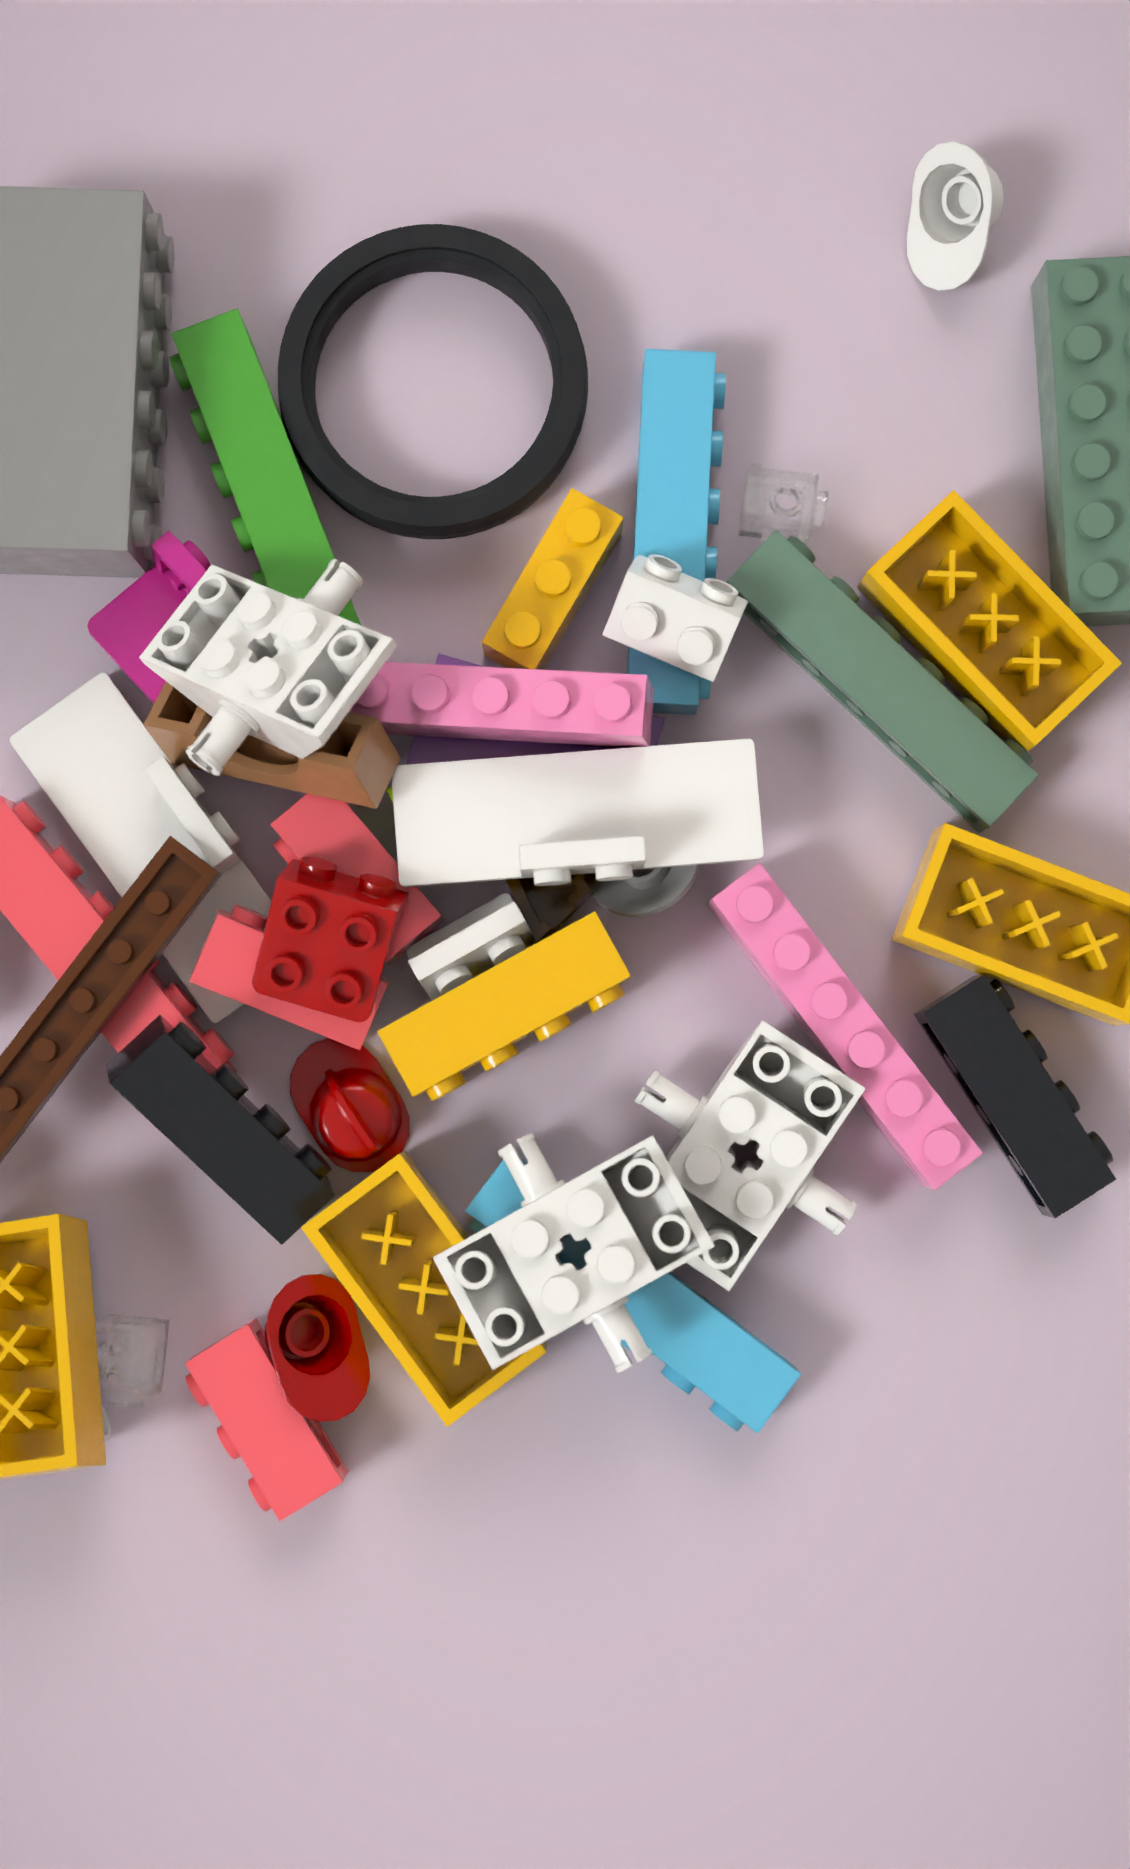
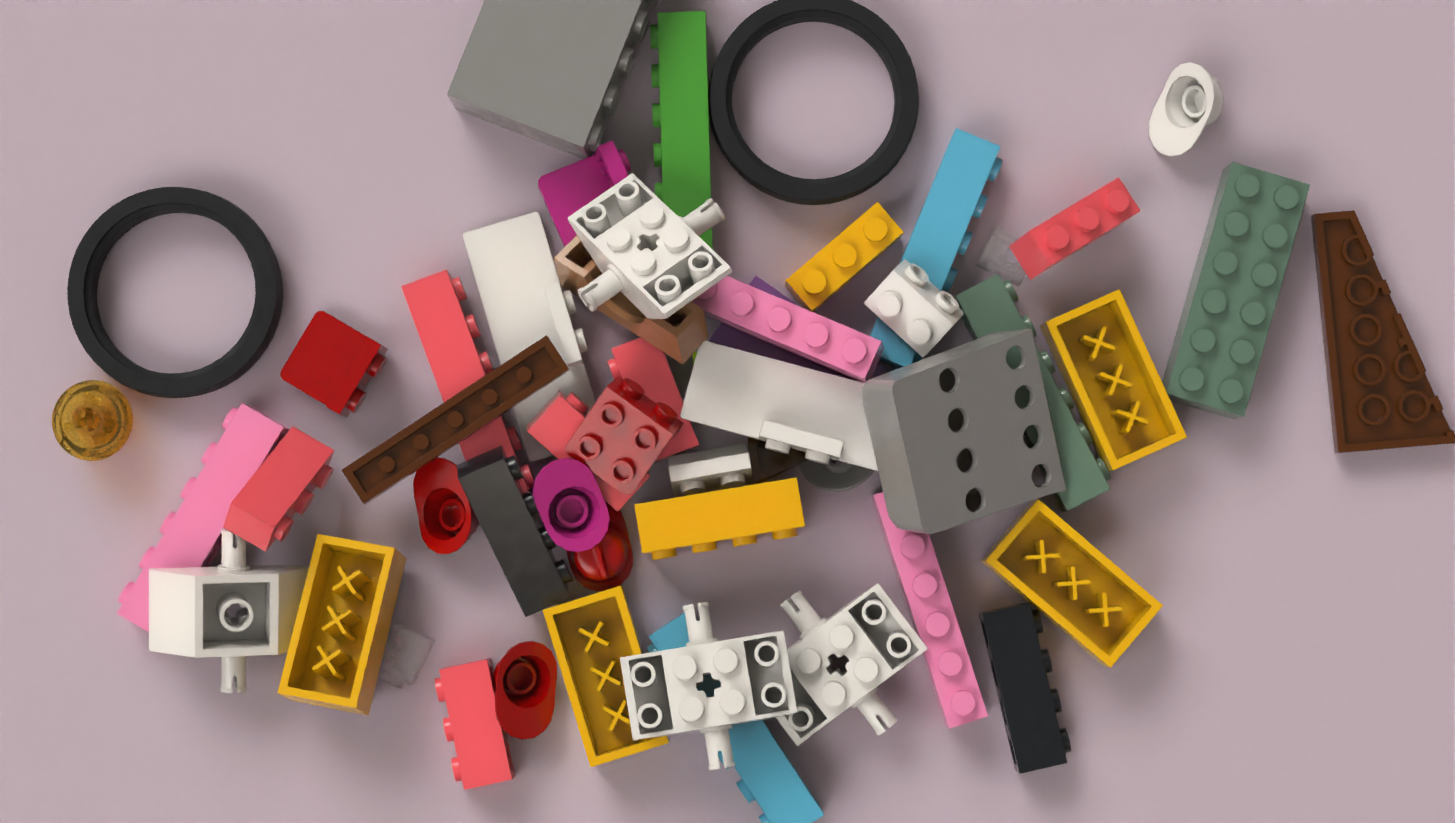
camera: 20 degrees right, 0 degrees up
(111, 1134) = (443, 507): none -> red piece
(288, 1063) = (571, 505): none -> dark pink piece
(799, 771) = (954, 436): none -> light grey piece
(859, 429) = (1074, 228): none -> coral brick

